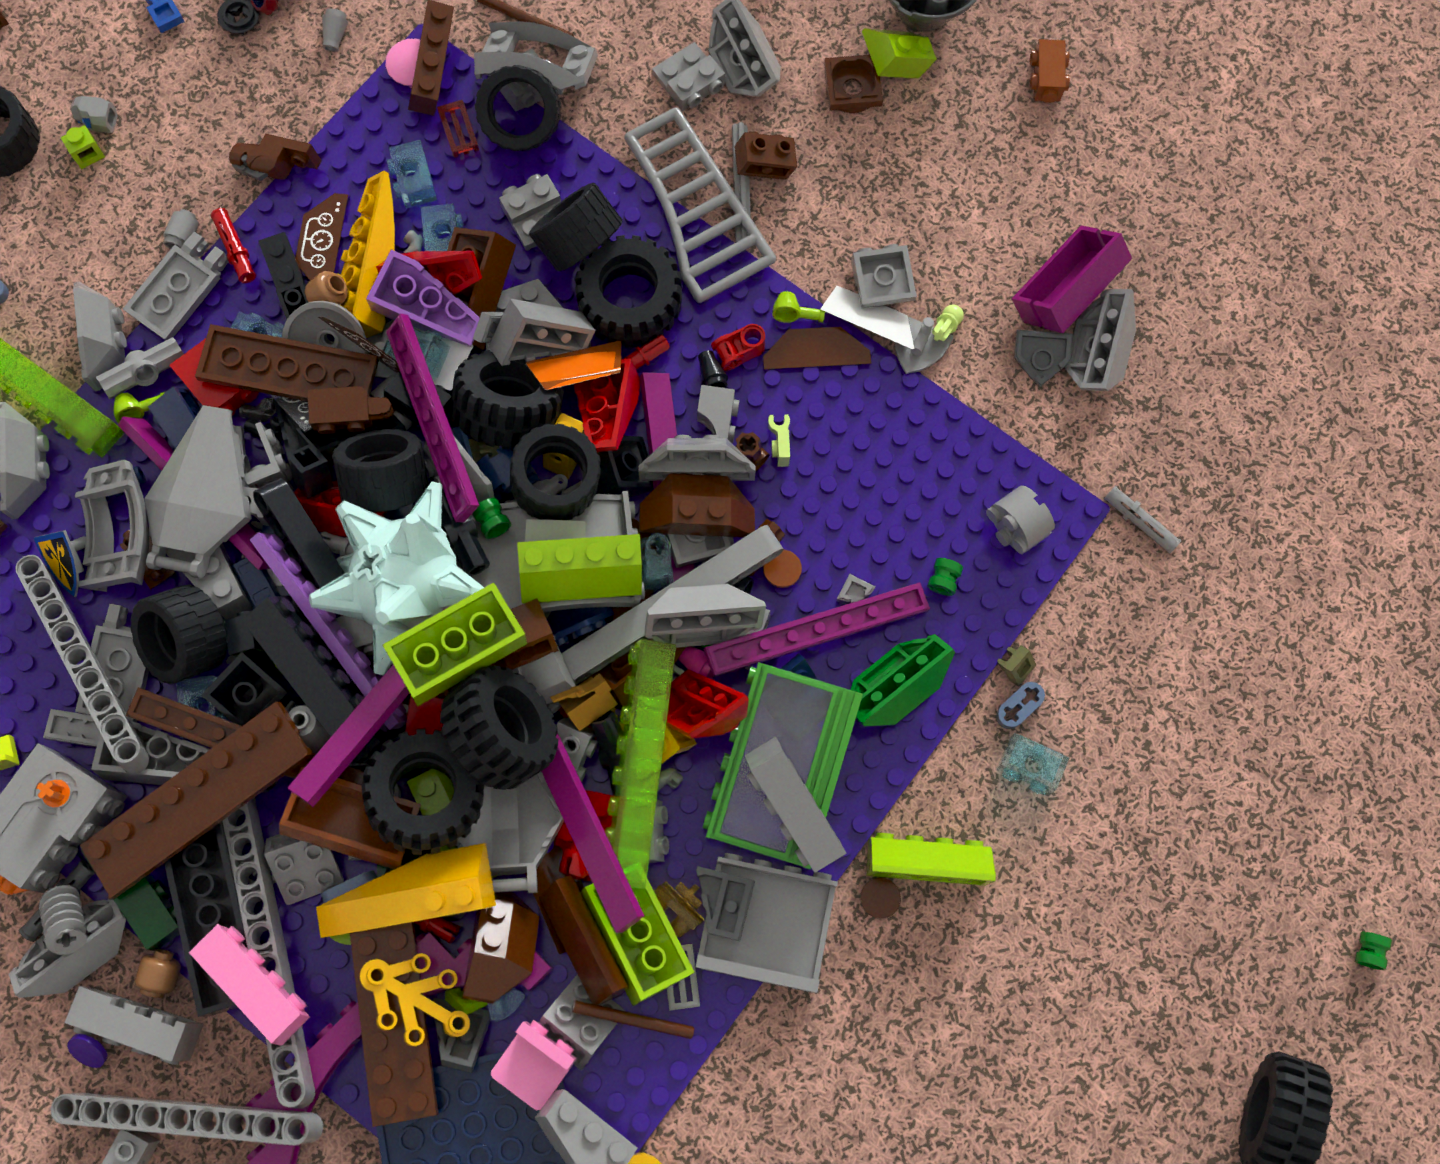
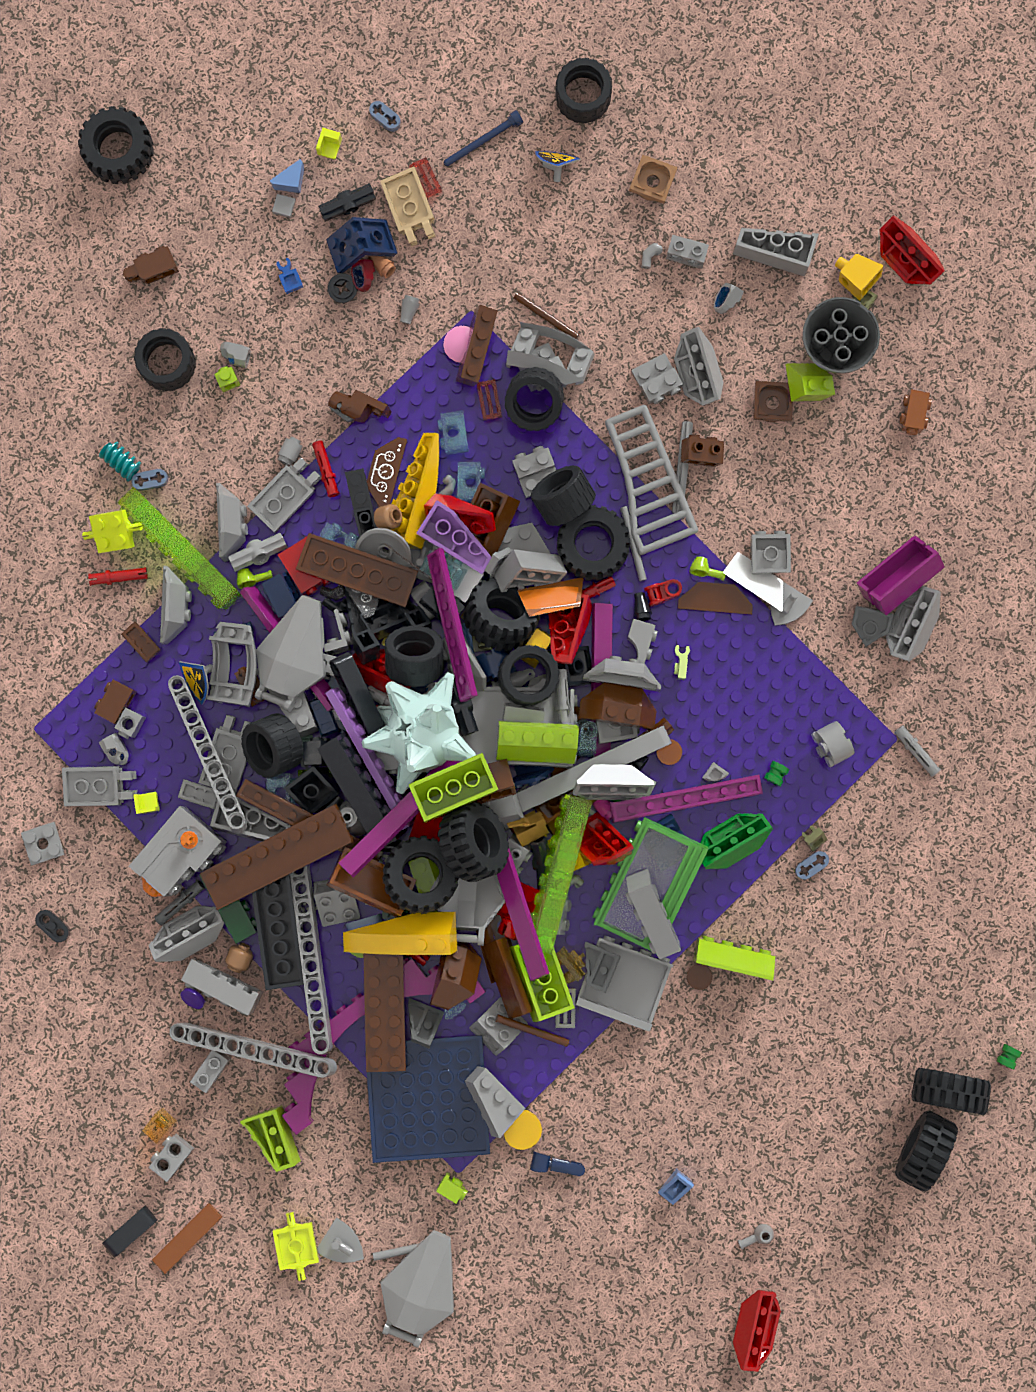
camera: 15 degrees right, 10 degrees up
(62, 920) = (186, 918): light grey piece -> none
(249, 984) = (301, 977): bright pink brick -> none
(345, 409) = (395, 608): reddish brown hinge -> none
(410, 996) = (397, 998): yellow plant -> none
(455, 999) = (424, 1001): lime tile -> none
(491, 518) = (483, 700): green wheel -> none
(533, 1064) = (468, 1049): bright pink bracket -> none
(614, 514) = (562, 698): none -> light grey pin
(694, 306) = (636, 556): none -> light grey bar
(751, 447) = (659, 669): reddish brown piece -> none
(947, 322) = (810, 591): yellowish green axle -> none
(1049, 763) = (823, 907): clear light blue brick -> none
(1303, 1014) = (951, 1091): none -> black tyre

